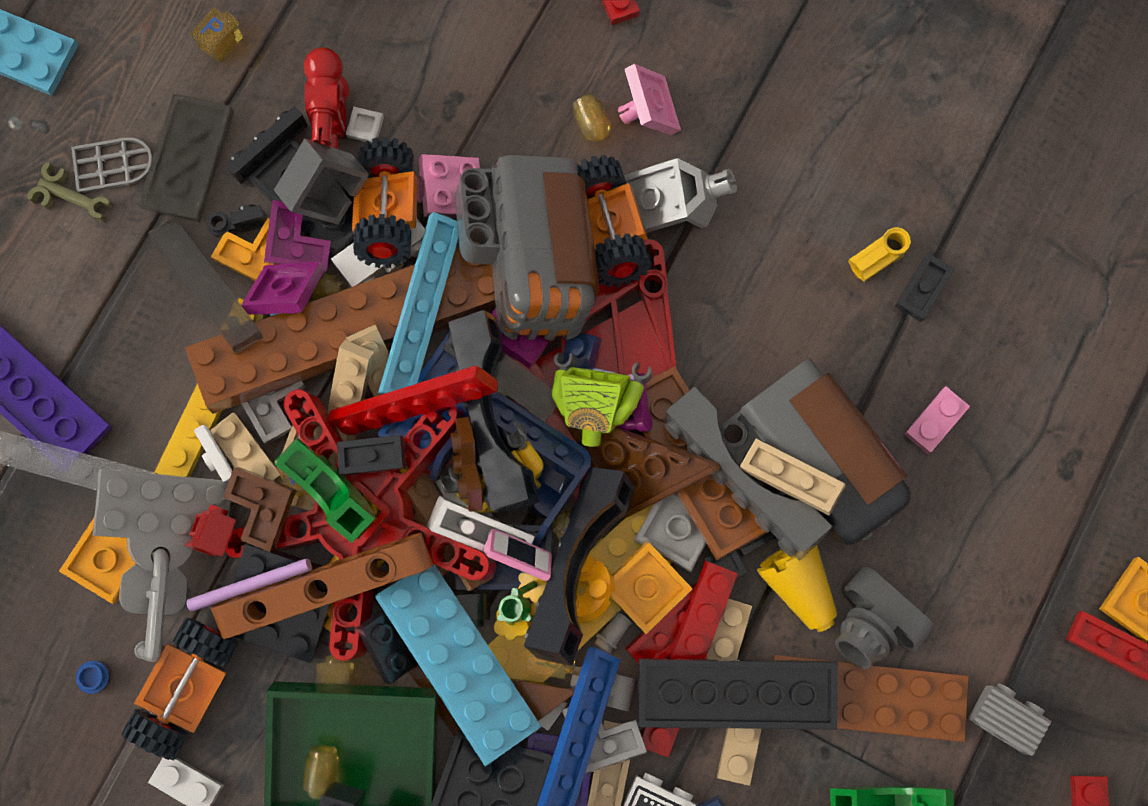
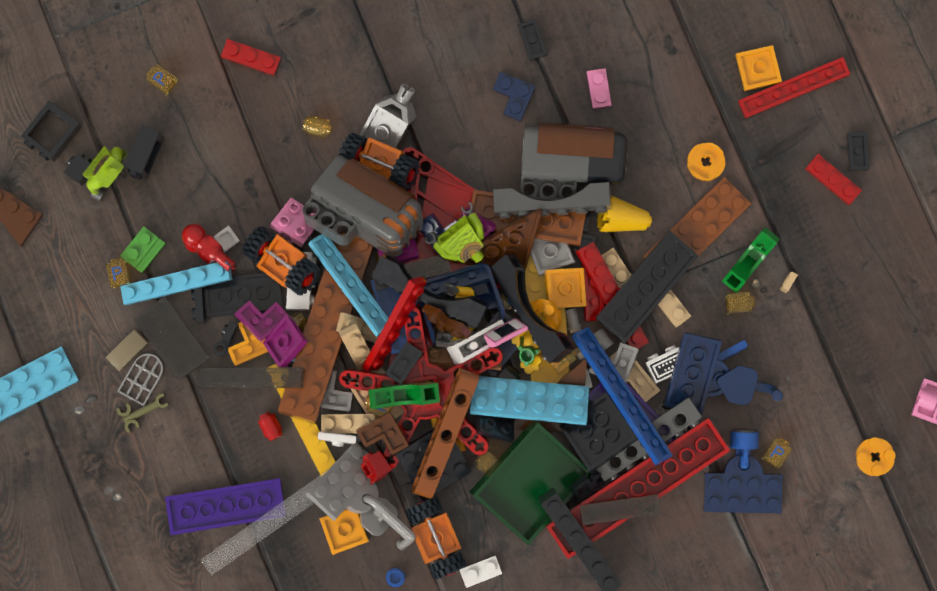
camera: 50 degrees left, 5 degrees up
(130, 116) = (127, 349): none -> dark tan slope
(168, 361) = (270, 426): none -> red brick
(249, 584) = (416, 467): lavender bar -> none
(250, 100) = (174, 283): none -> medium azure plate
(271, 41) = (143, 250): none -> bright green plate
(310, 186) = (244, 289): dark grey piece -> none
(320, 770) = (527, 501): clear yellow brick -> none
(651, 101) = (334, 92): bright pink tile -> none
(792, 476) = (572, 181): tan plate -> none
(844, 322) = (519, 94): none -> dark blue plate
(879, 254) = (499, 48): yellow piece -> none
(879, 622) = (668, 195): dark grey beam -> none
(954, 650) = (707, 172): none -> light orange plate
(1009, 719) = (757, 175): light grey brick -> none

